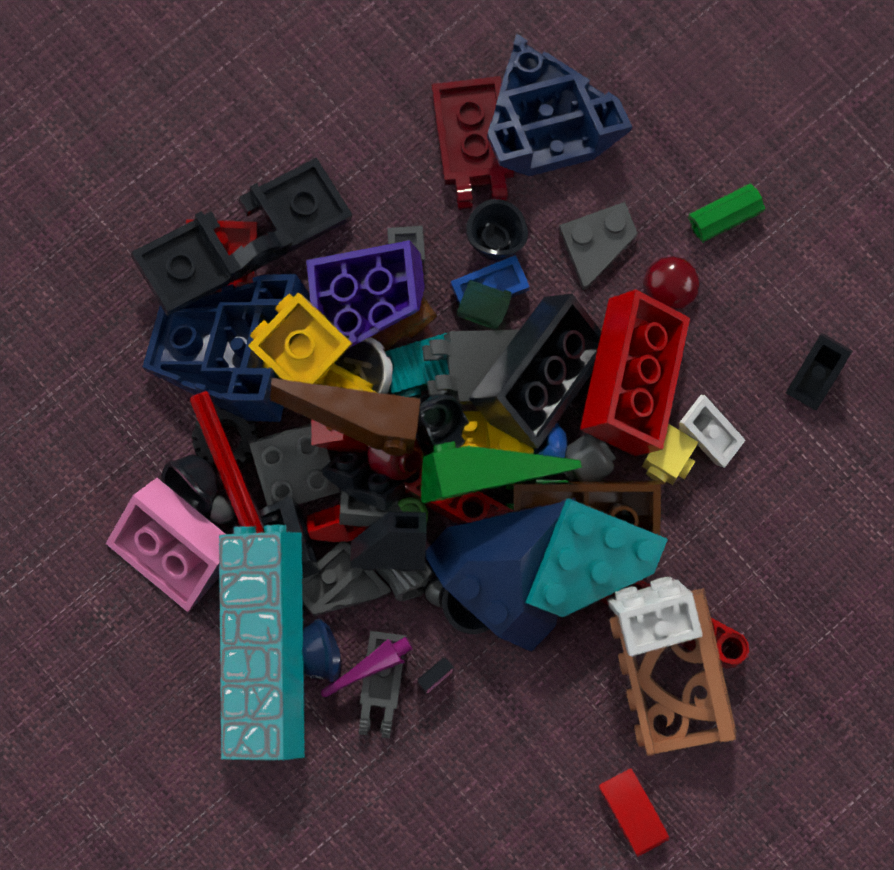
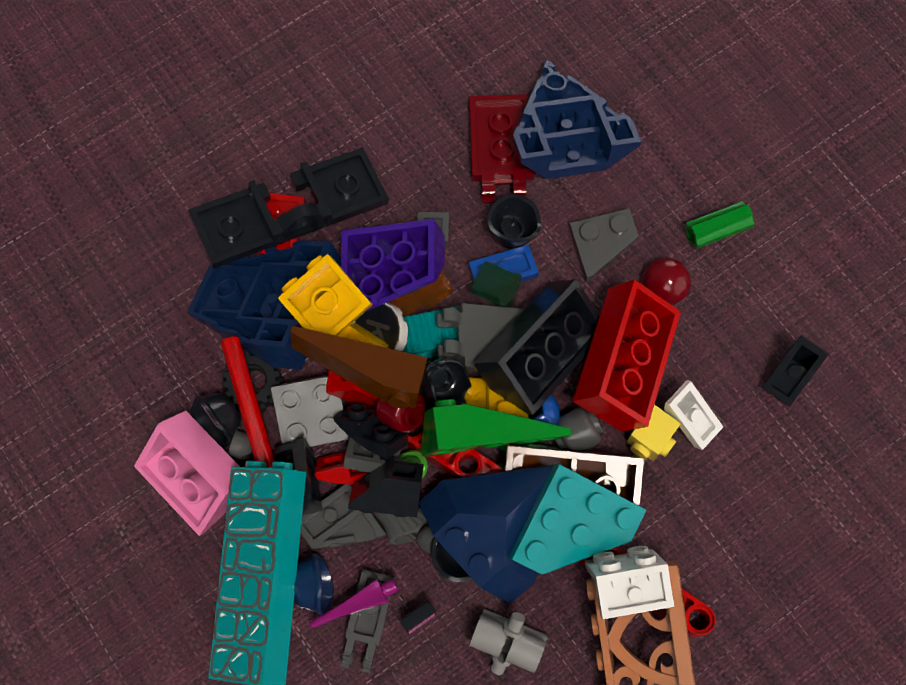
camera: 10 degrees right, 5 degrees down
(533, 690) = (508, 641): none -> light grey pin

